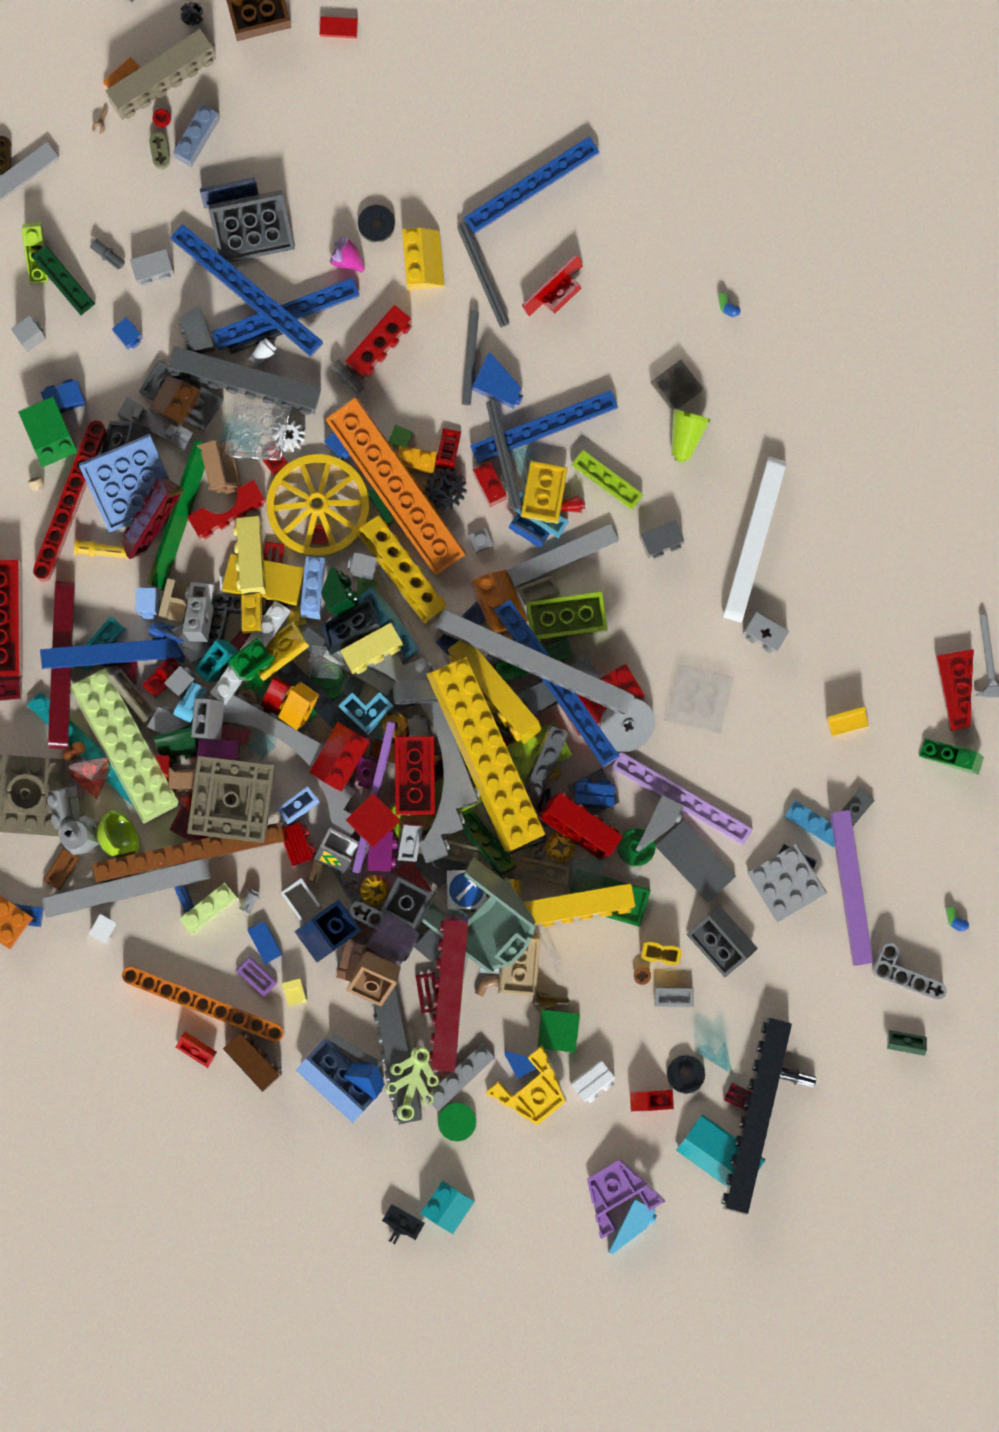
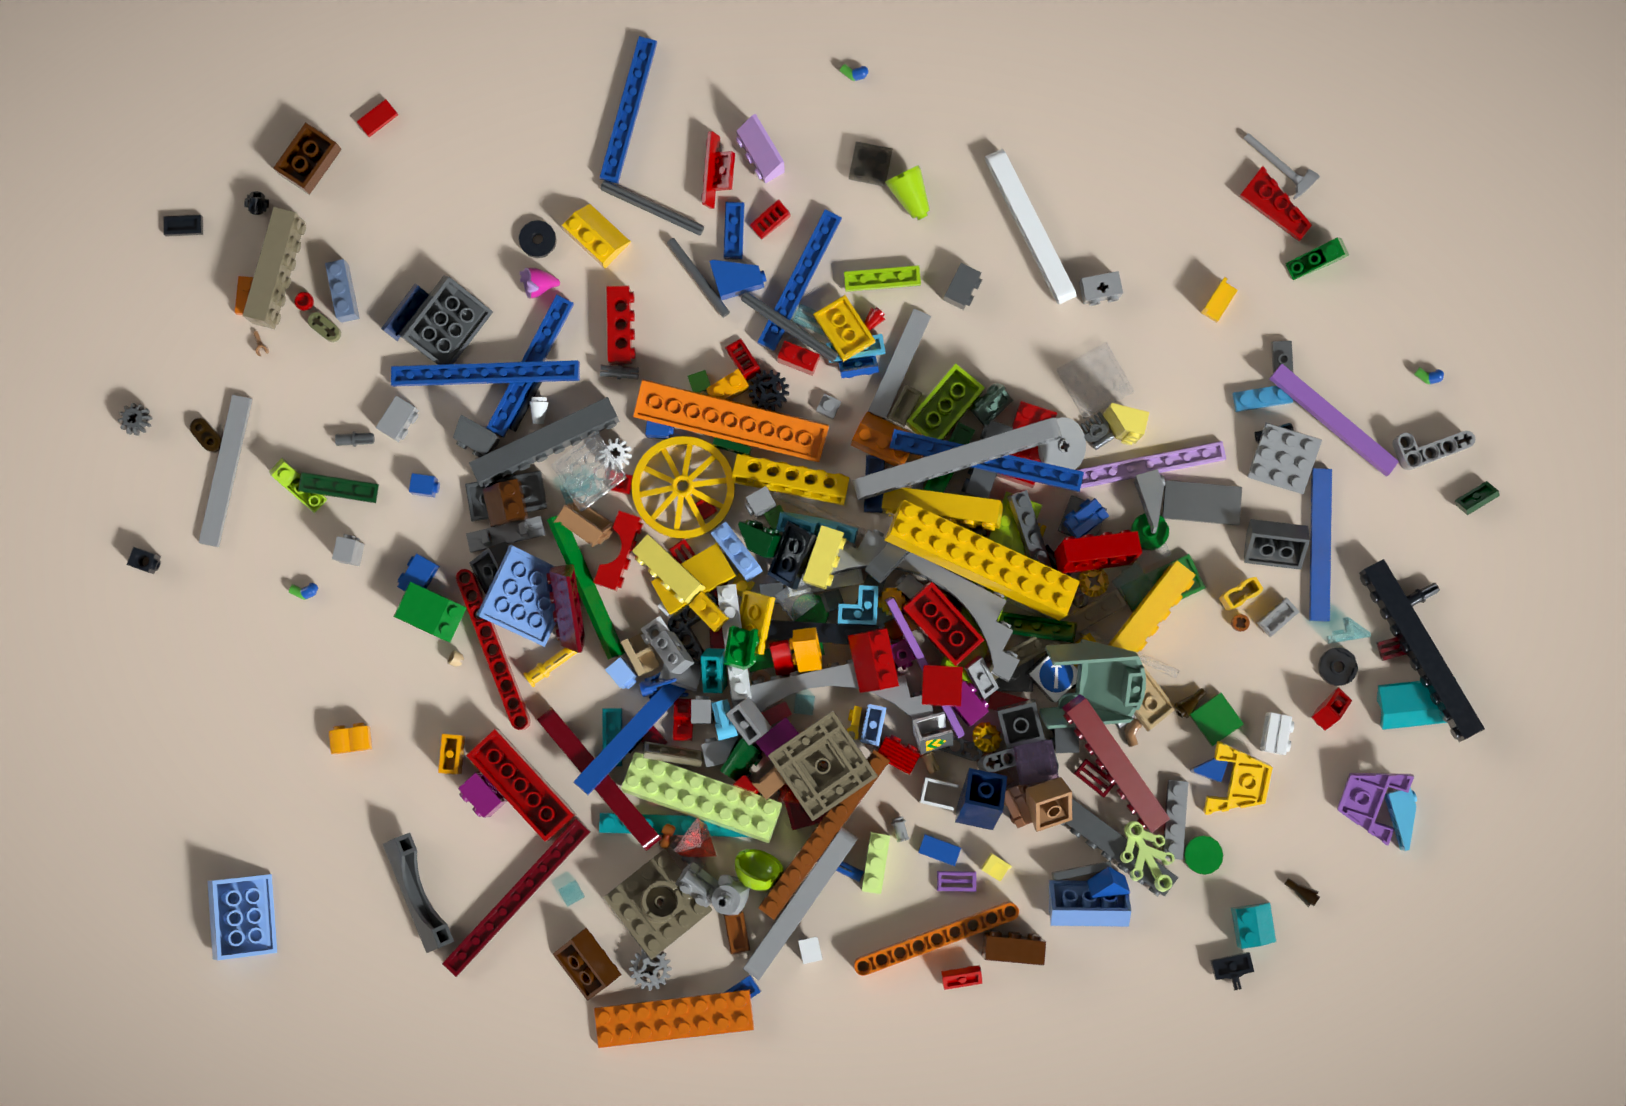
camera: 35 degrees left, 0 degrees up
(290, 788) = (854, 717): none -> yellow plate
(506, 1220) = (1306, 894): none -> dark brown cone
(529, 346) = (734, 230): none -> blue tile
(572, 369) = (774, 224): none -> red slope
(601, 302) = (760, 149): none -> lavender slope
(603, 646) = (991, 404): none -> sand green bracket
(665, 739) = (1098, 432): none -> dark grey piece
(689, 749) = (1126, 422): none -> light yellow slope
(756, 972) = (1320, 545): none -> blue tile

